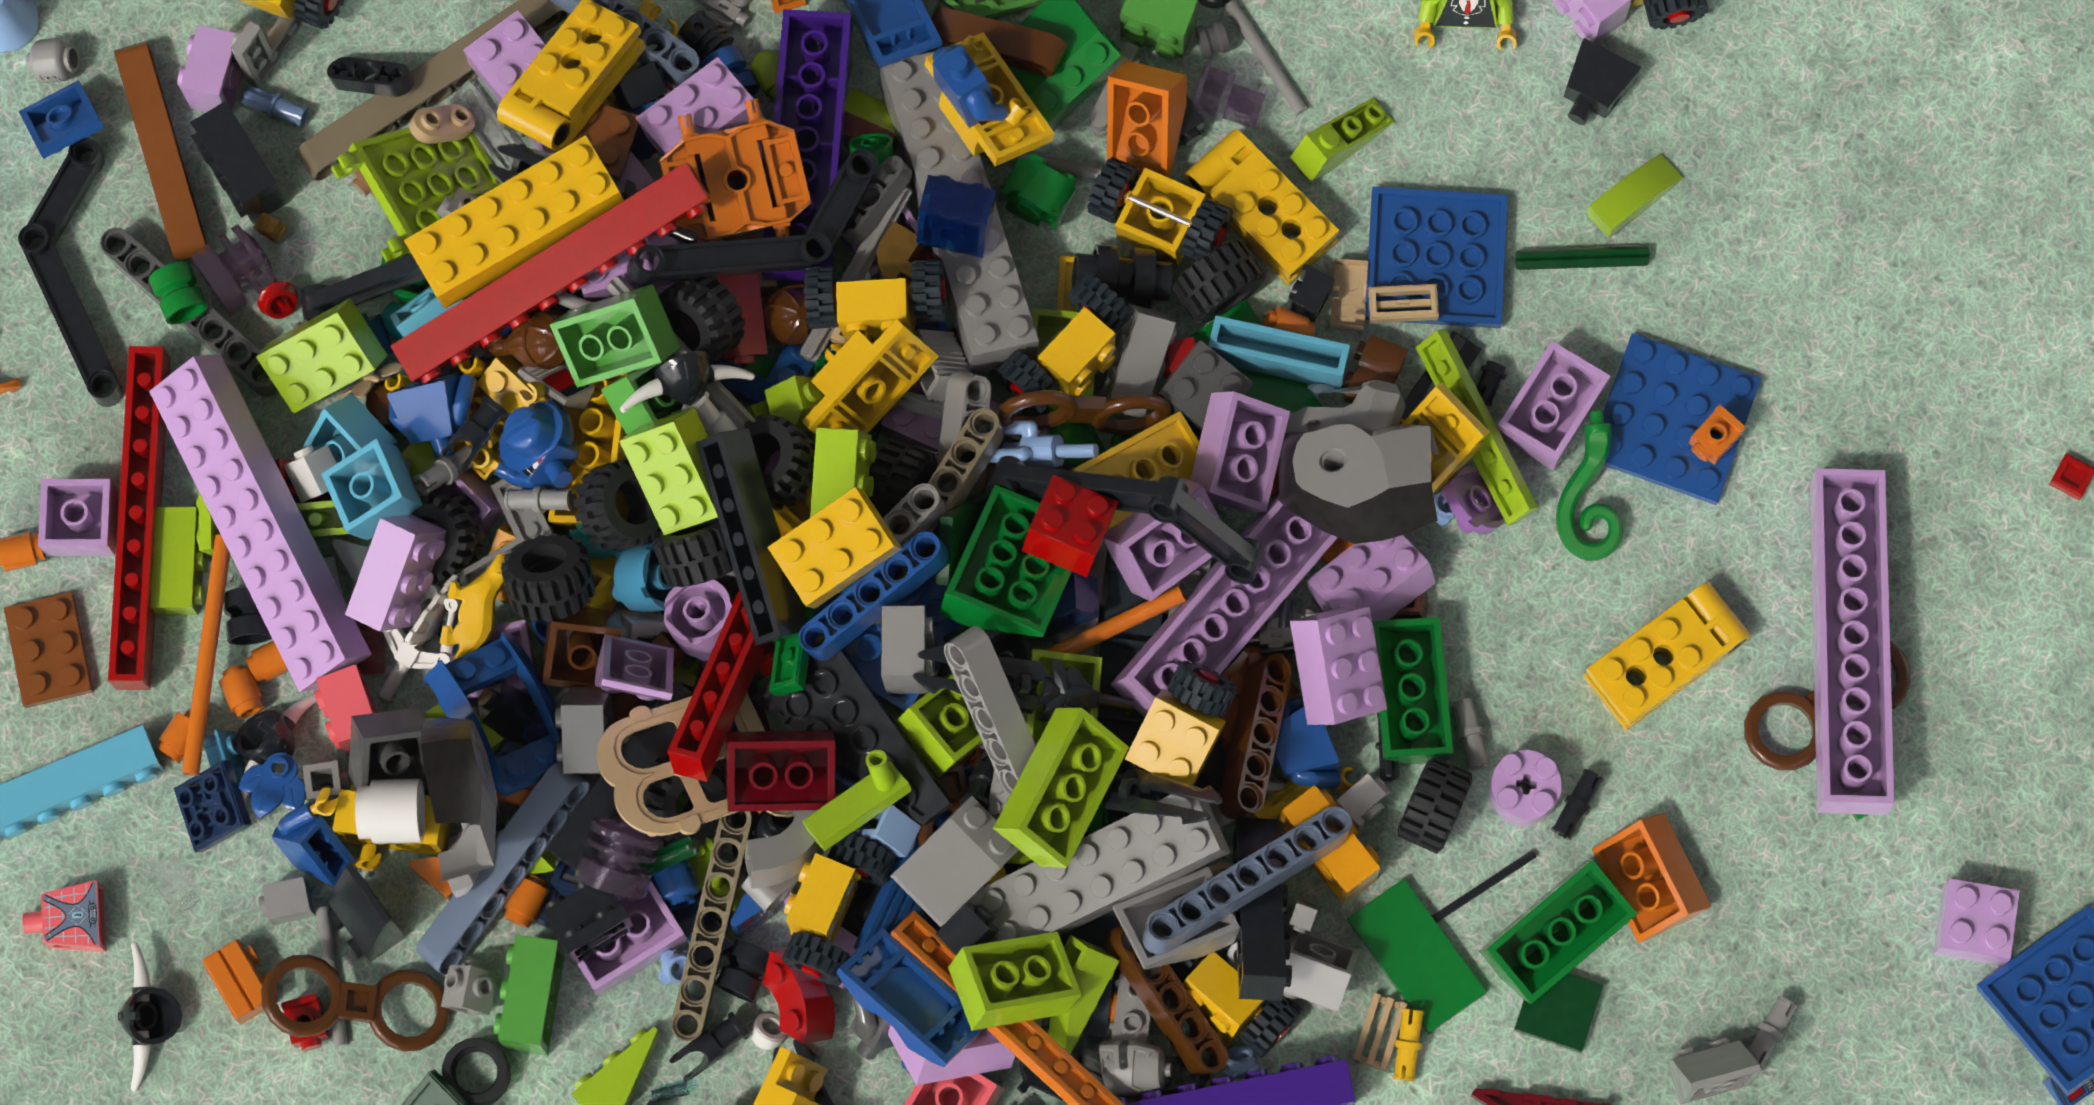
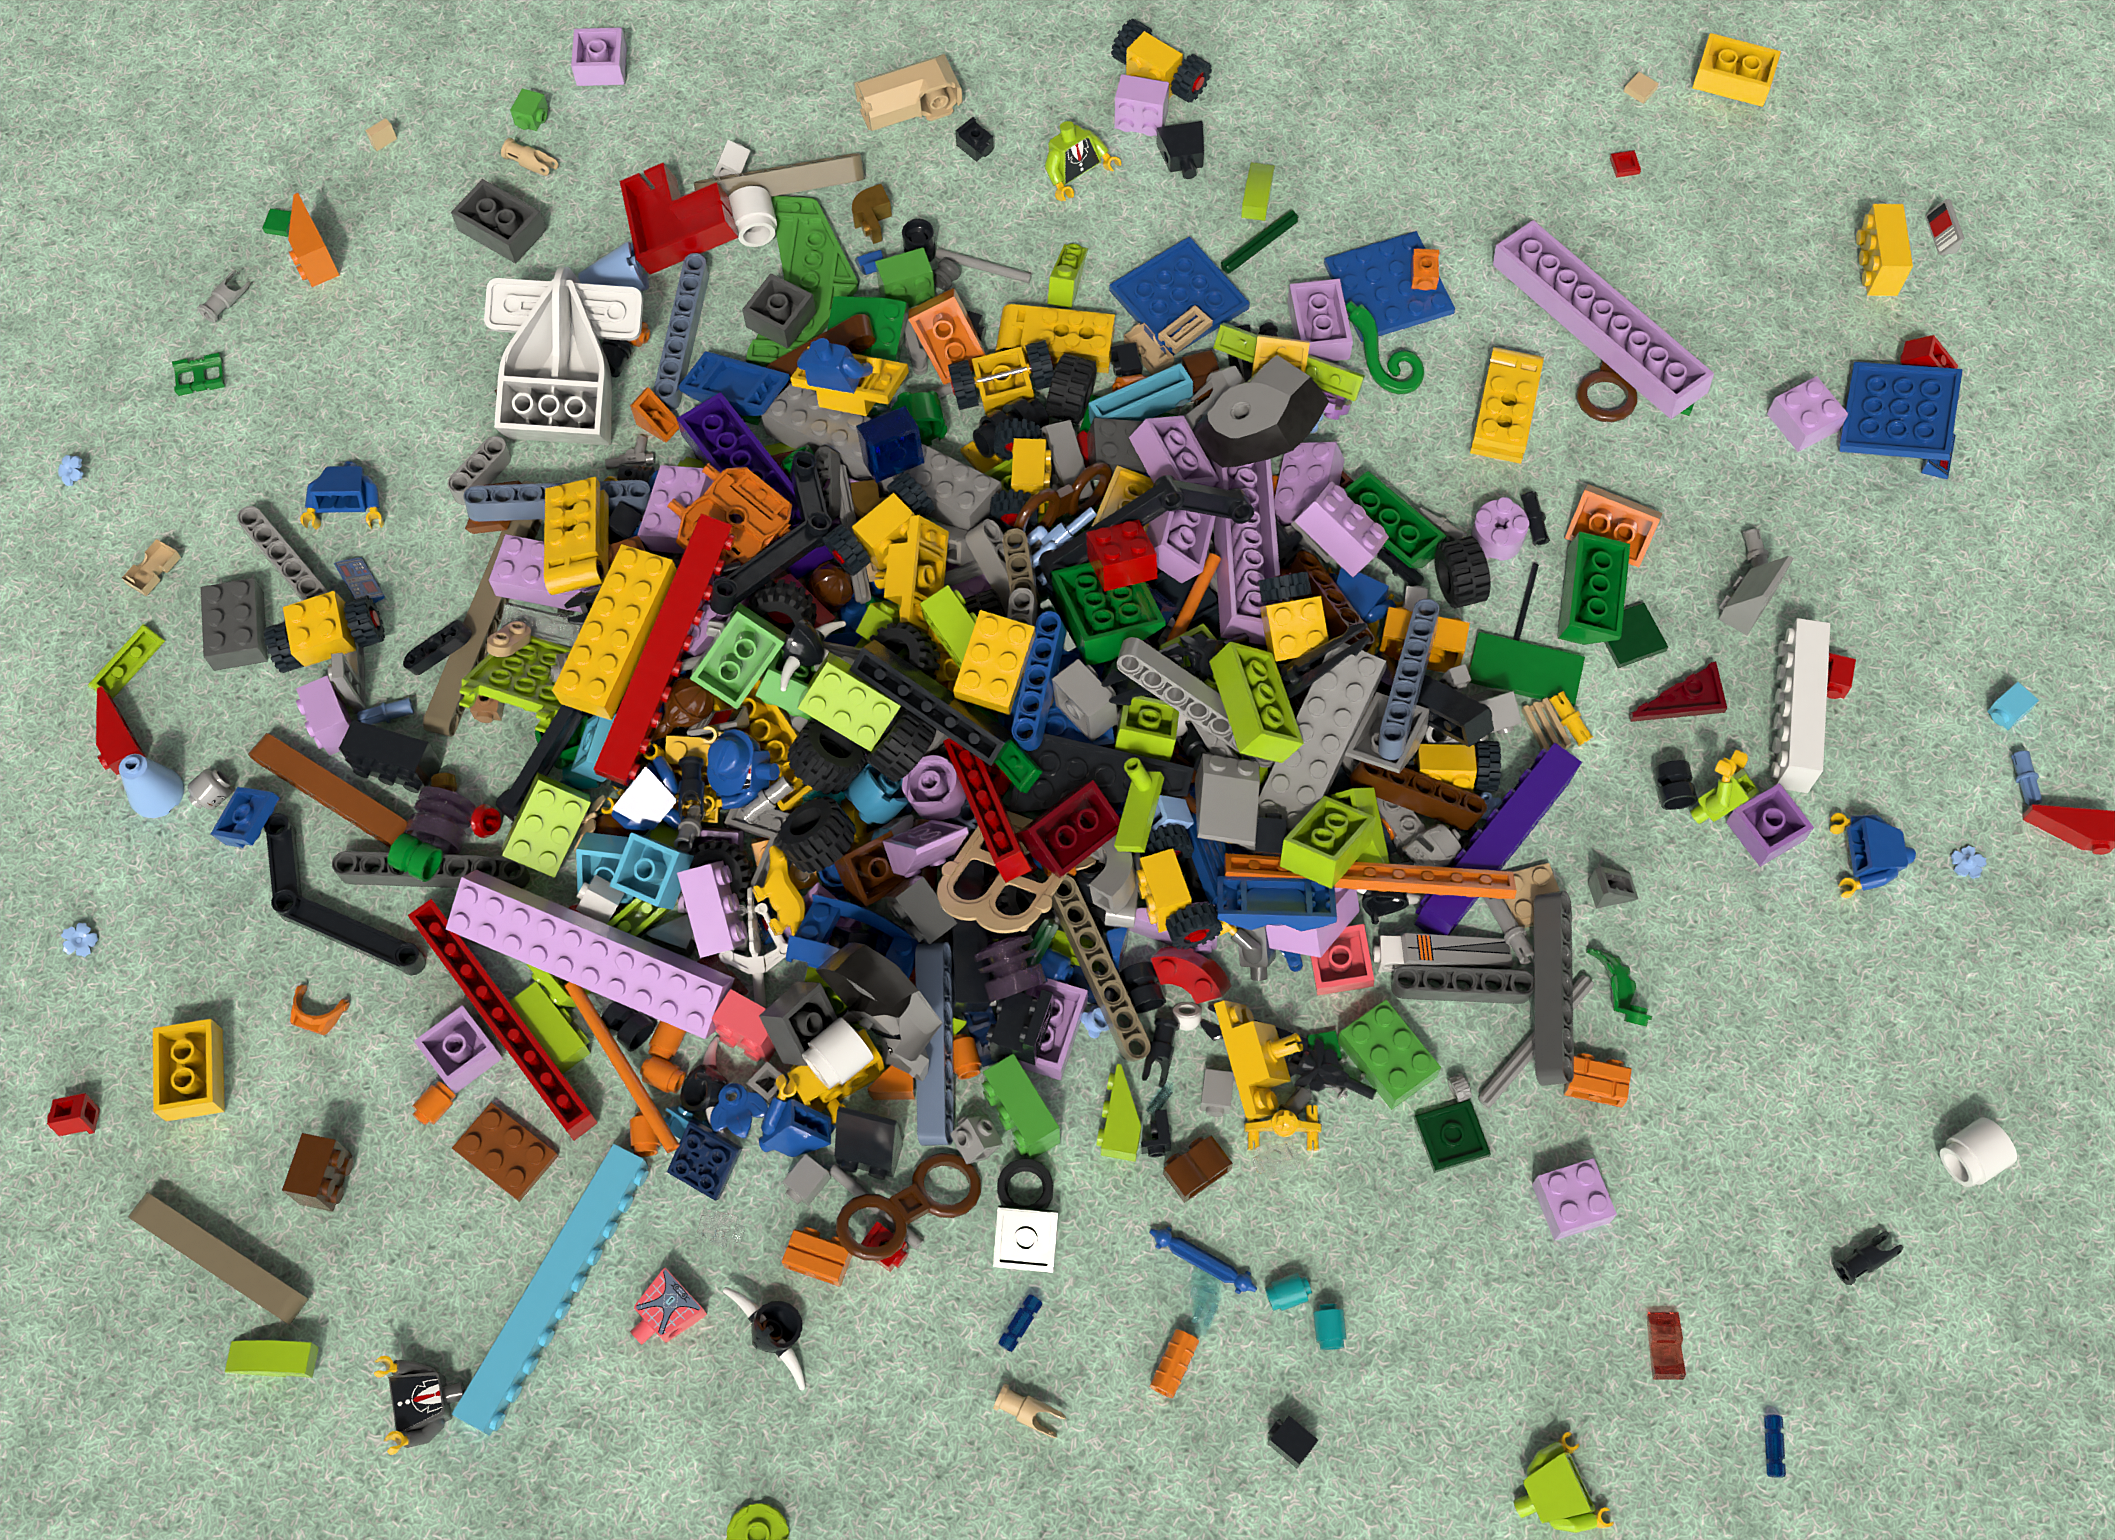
camera: 40 degrees left, 10 degrees down
(1221, 98) = (983, 297): clear purple brick -> none

